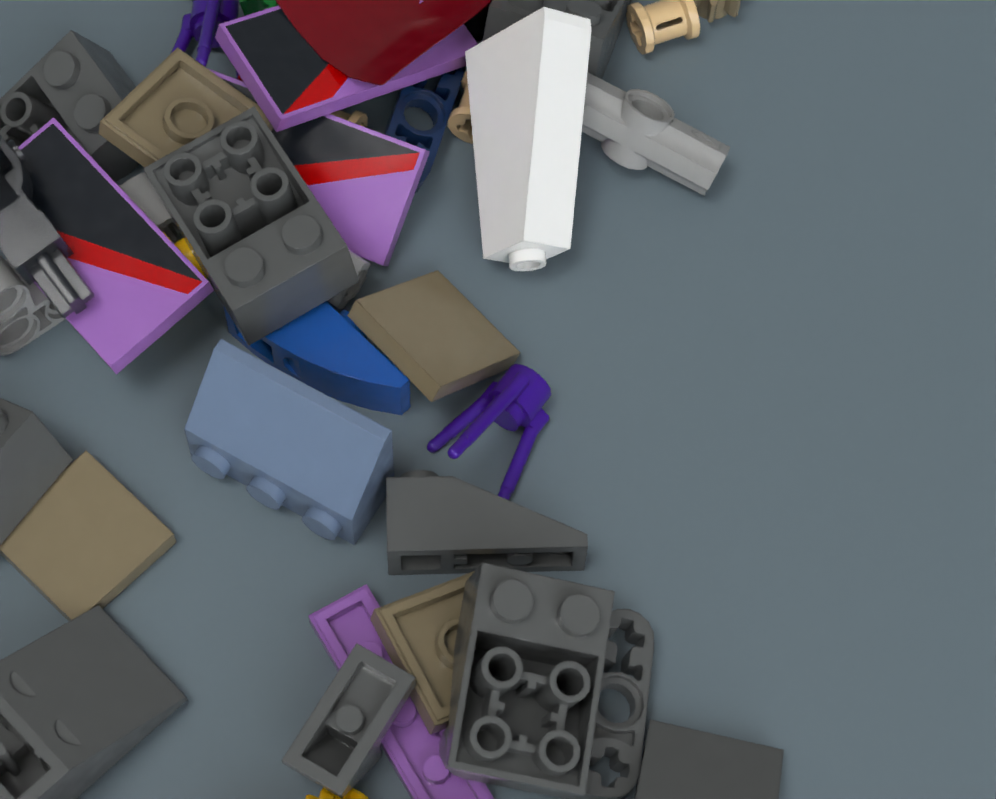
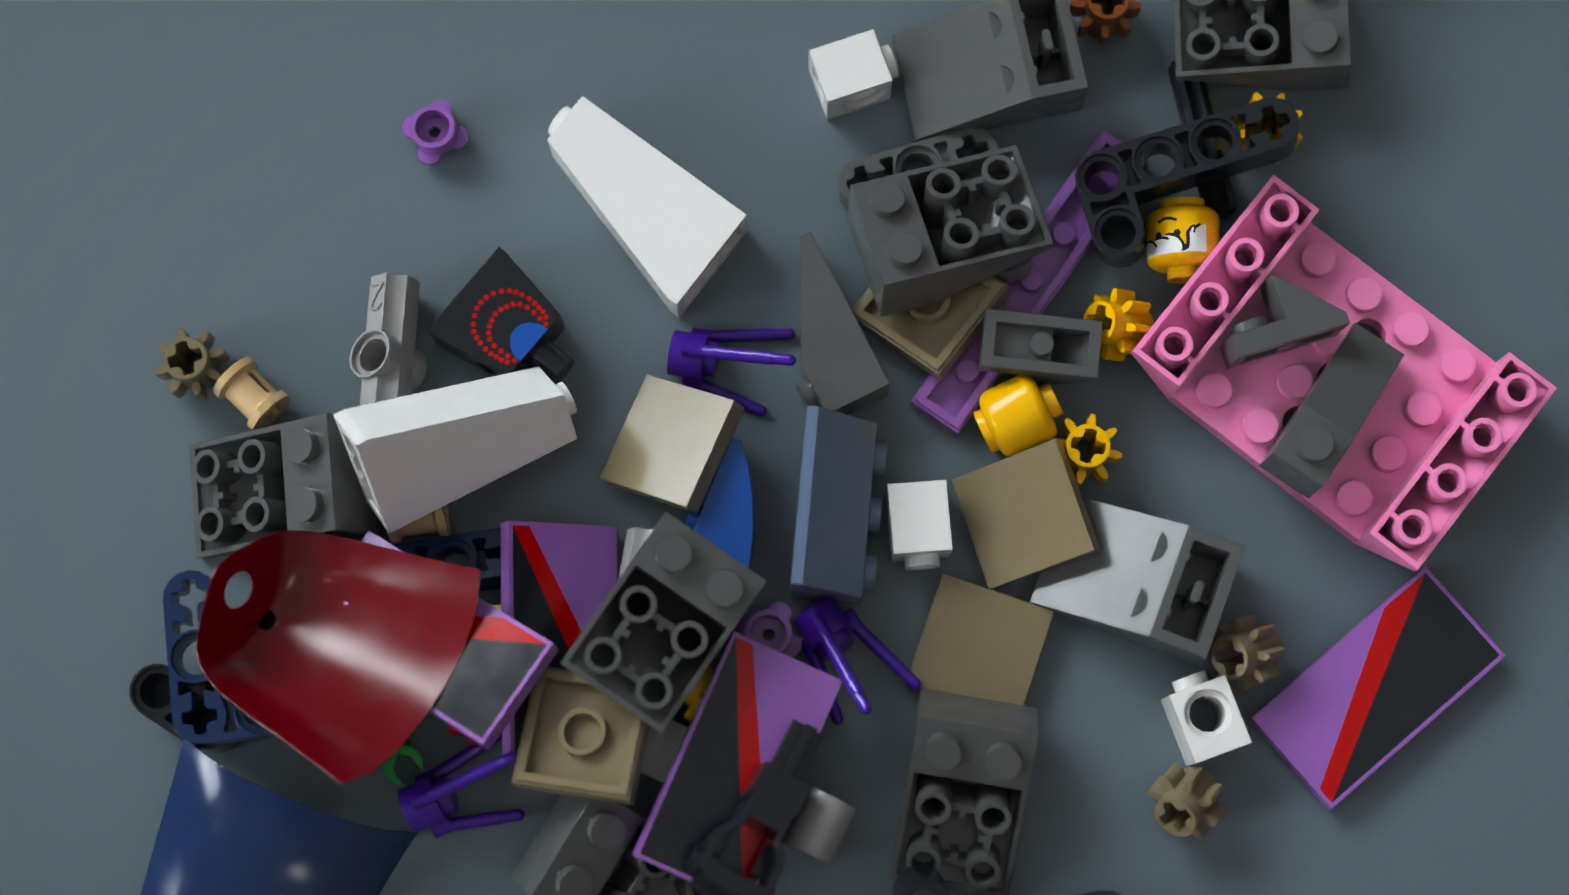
camera: 110 degrees left, 15 degrees up
(170, 399) = (828, 636): none -> dark purple plant
(184, 635) = (1025, 514): none -> dark tan tile
(195, 339) = (775, 619): none -> medium lavender plate
(220, 711) = (1099, 444): none -> yellow gear
(234, 529) = (919, 523): none -> white brick
(290, 676) = (1017, 415): none -> yellow head
(630, 245) = (503, 323): none -> black torso
(696, 418) = (652, 206): none -> white slope
(754, 681) = (852, 73): none -> white brick
(864, 253) = (427, 118): none -> medium lavender plate

